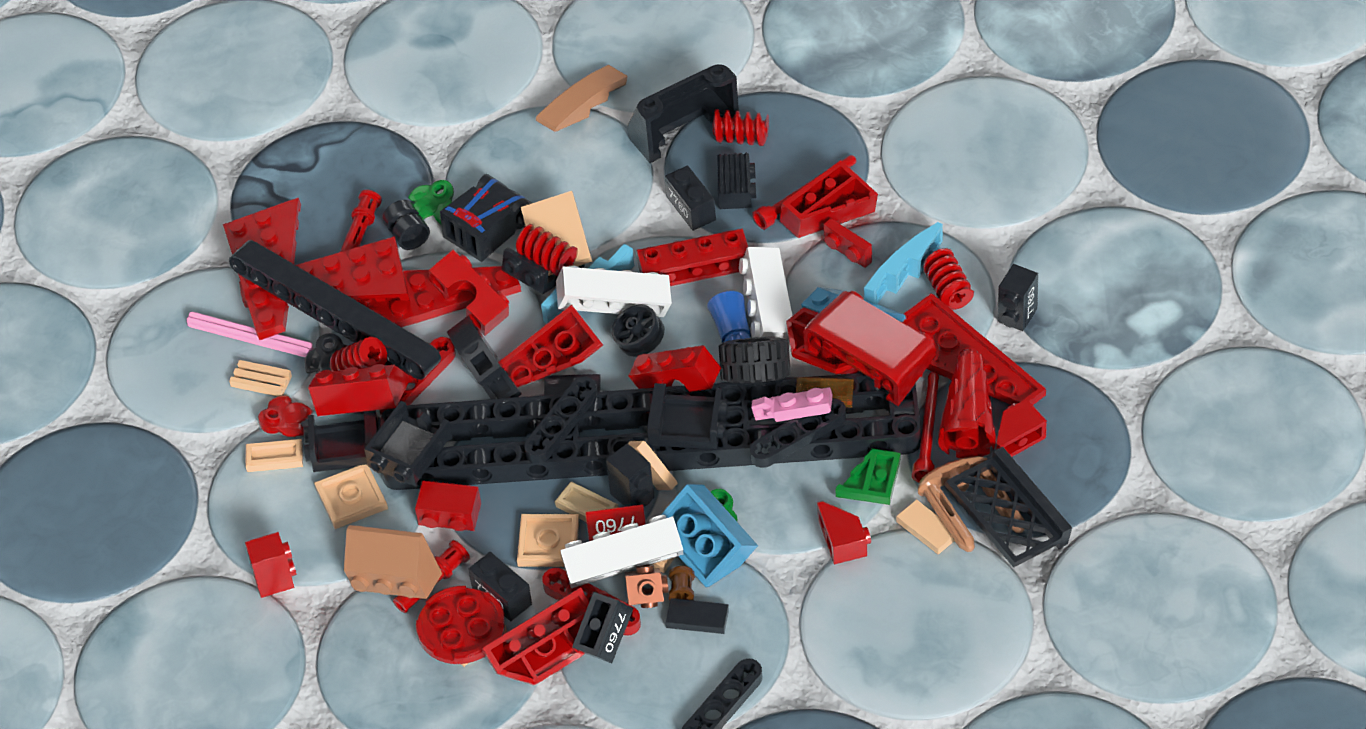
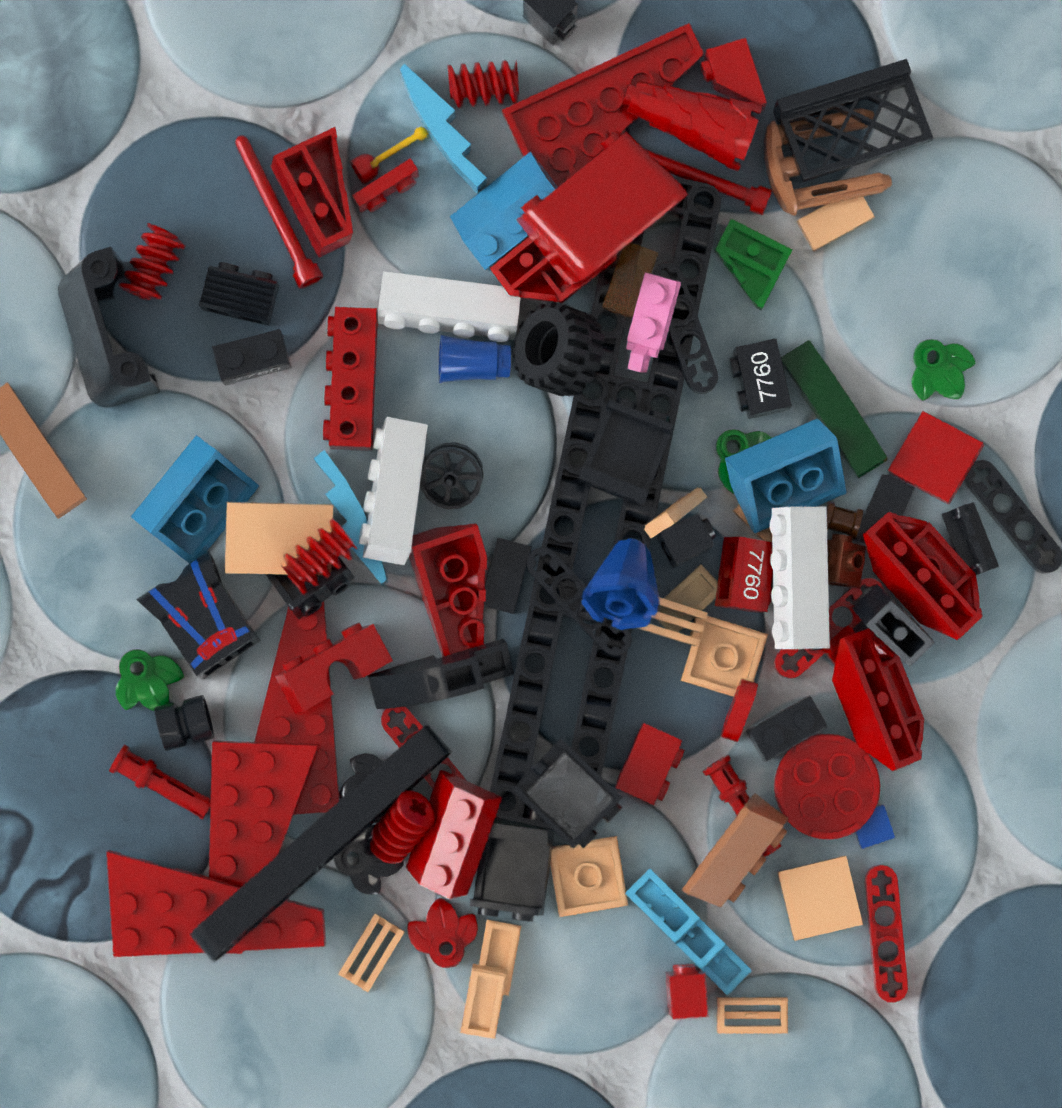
camera: 85 degrees left, 35 degrees up
(237, 449) = (483, 1001): none -> light nougat tile
(248, 334) = (291, 961): bright pink axle -> none
(268, 645) = (730, 1029): none -> light nougat tile
(318, 571) = (688, 932): none -> medium azure slope
(349, 695) = (891, 932): none -> red beam
(369, 648) = (820, 898): none -> light nougat tile
(435, 671) = (876, 829): none -> blue tile
(509, 548) = (739, 710): none -> red beam
(565, 462) = (695, 626): none -> light nougat tile
(579, 429) = (624, 587): none -> blue cone
(592, 191) = (191, 500): none -> dark azure slope
(657, 641) = (924, 573): none -> red wedge
(689, 365) = (546, 448): red arch -> none
(693, 678) = (970, 538): none -> black hinge
(752, 635) = (936, 457): none -> red tile
(768, 556) = (834, 408): none -> dark green slope
(778, 505) = (760, 379): none -> black brick
(828, 627) = (944, 373): none -> green plate
(842, 533) = (825, 318): red slope -> none
(861, 229) = (367, 166): none -> hinge

